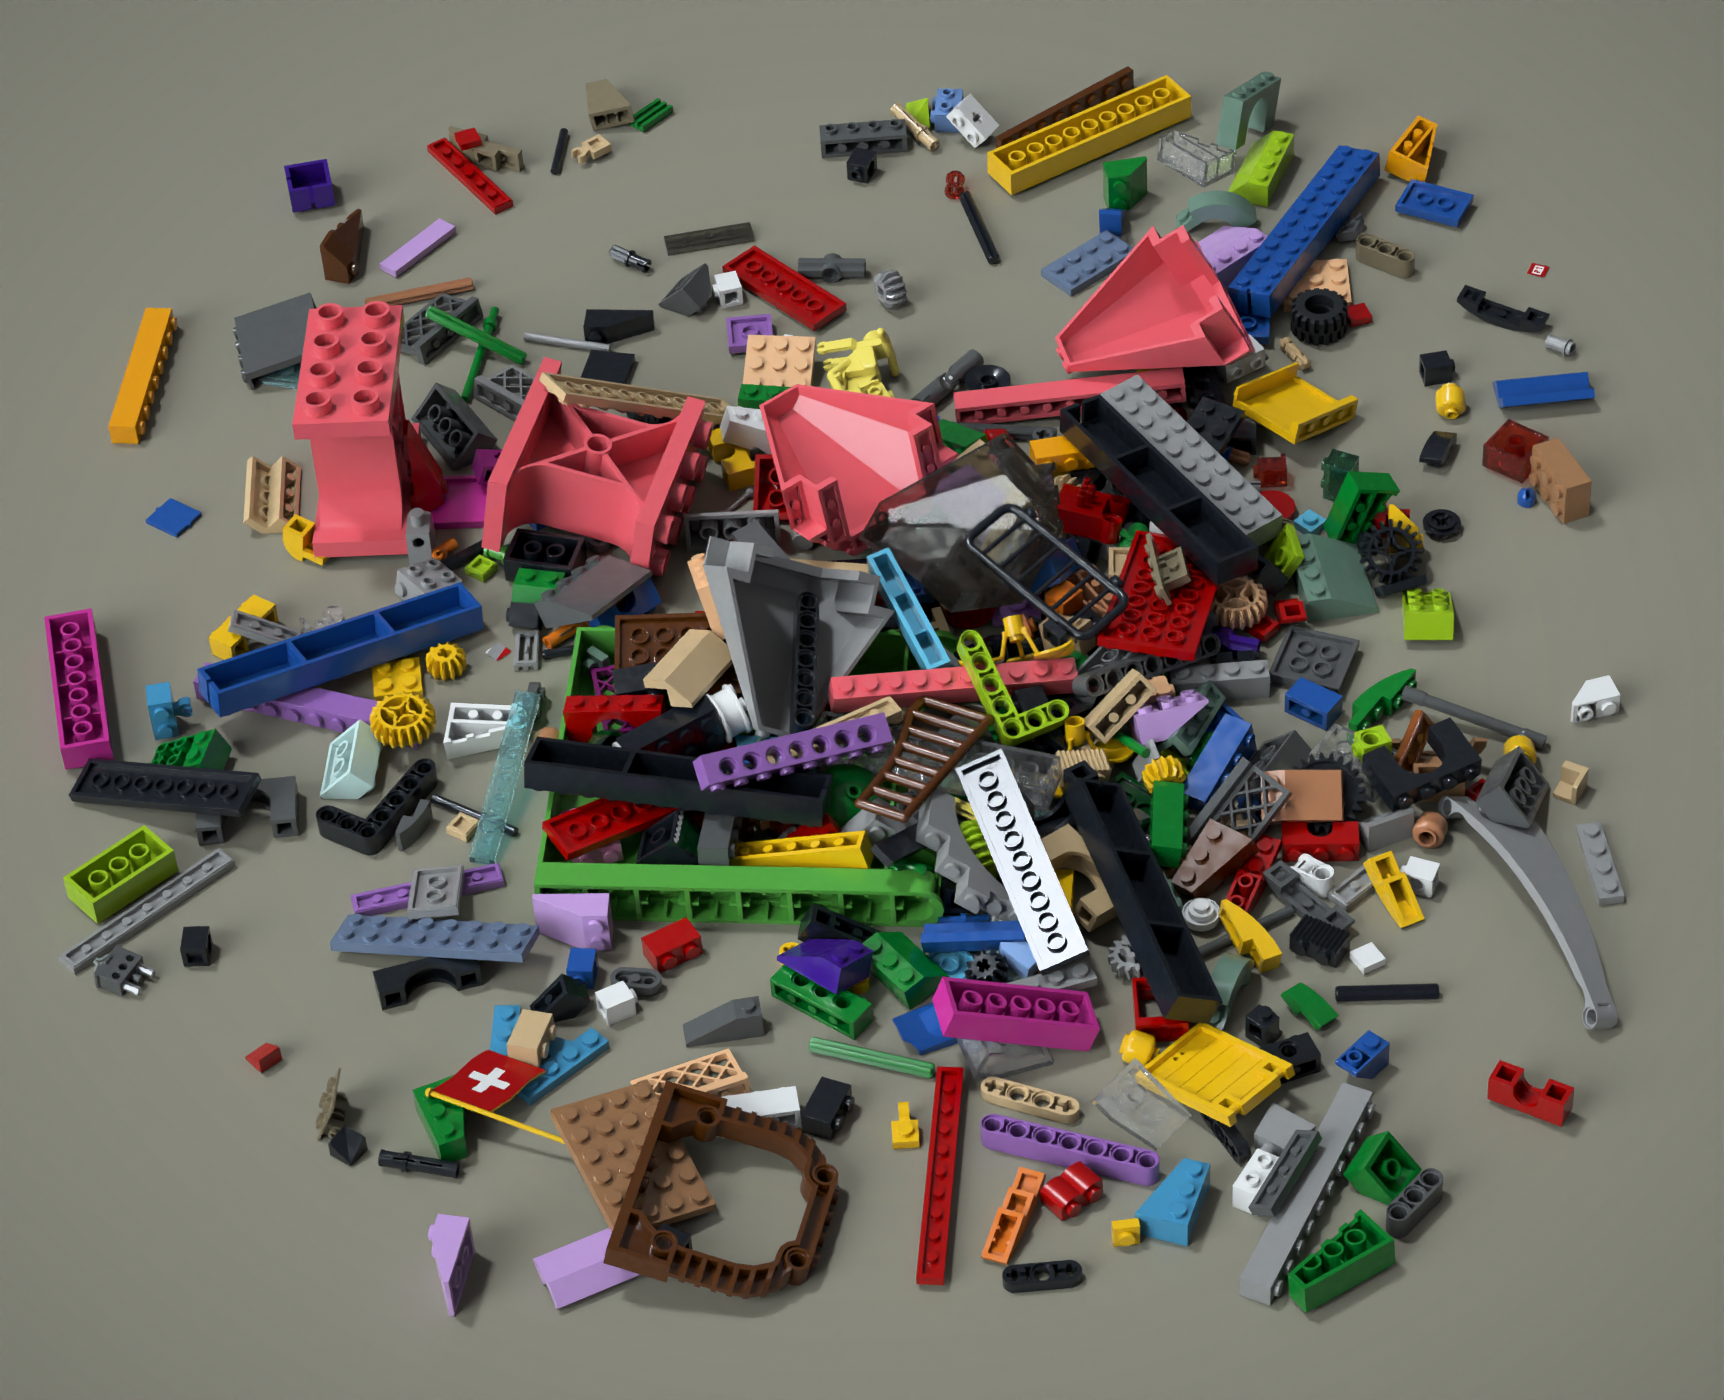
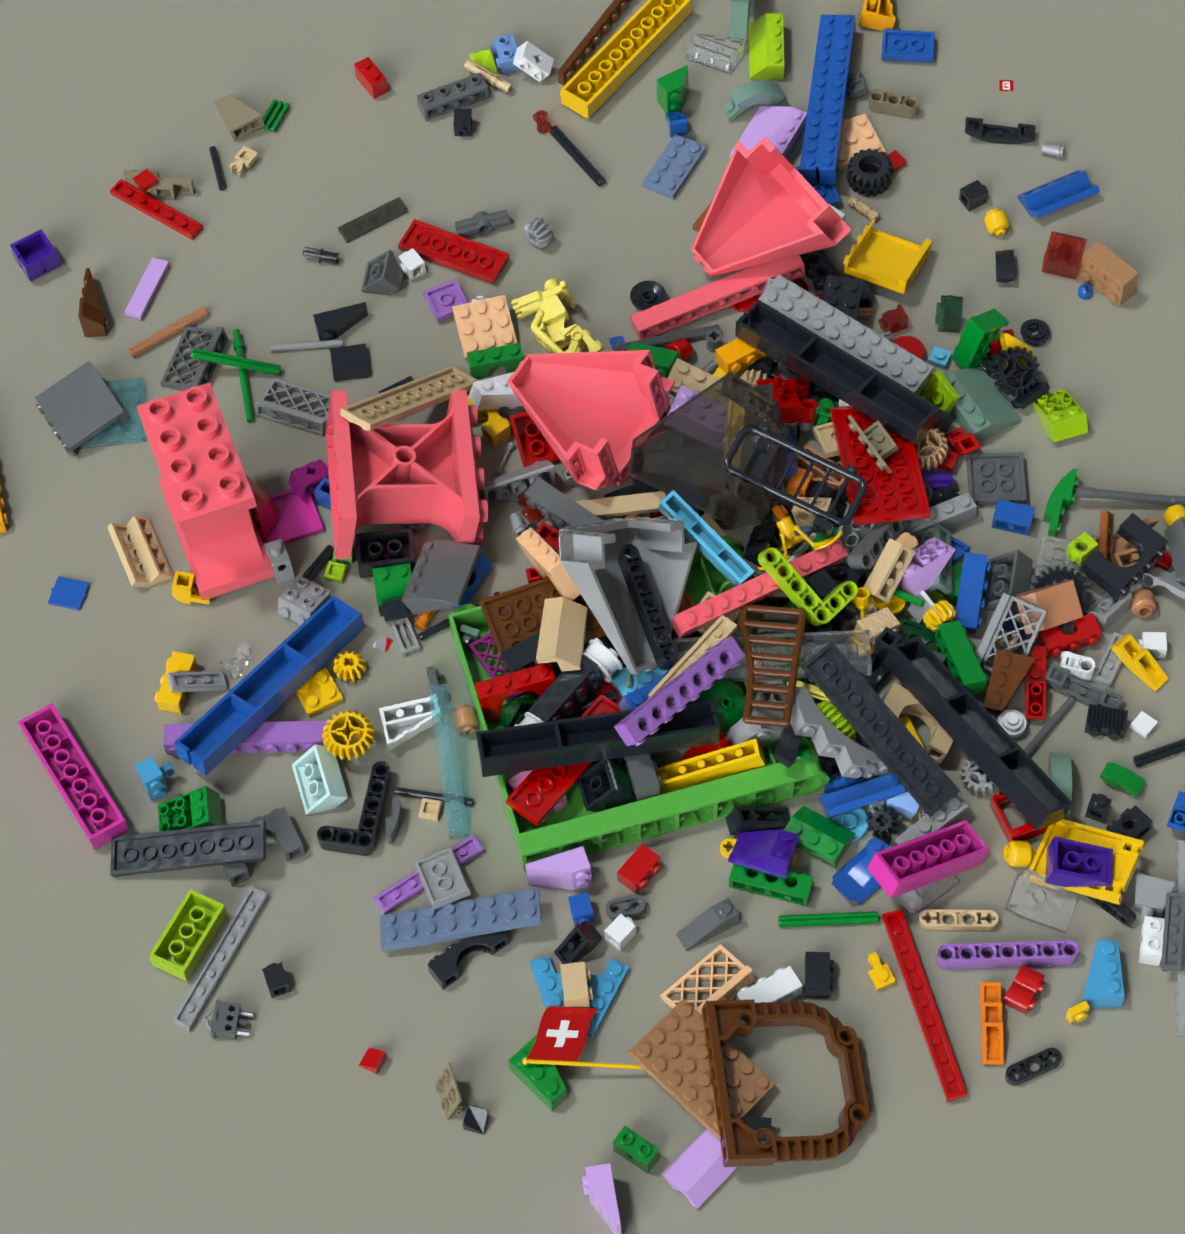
camera: 20 degrees left, 15 degrees up
(407, 1161) = (511, 1120): black pin -> none
(442, 550) = (298, 564): orange arm -> none
(452, 426) = (260, 451): dark grey slope -> none
(516, 1225) = (636, 1149): none -> green brick
(778, 99) = (371, 77): none -> red brick
(947, 383) = (621, 295): dark grey piece -> none
(1197, 1067) = (1078, 864): none -> dark purple slope
(1250, 936) = (1056, 734): yellow slope -> none

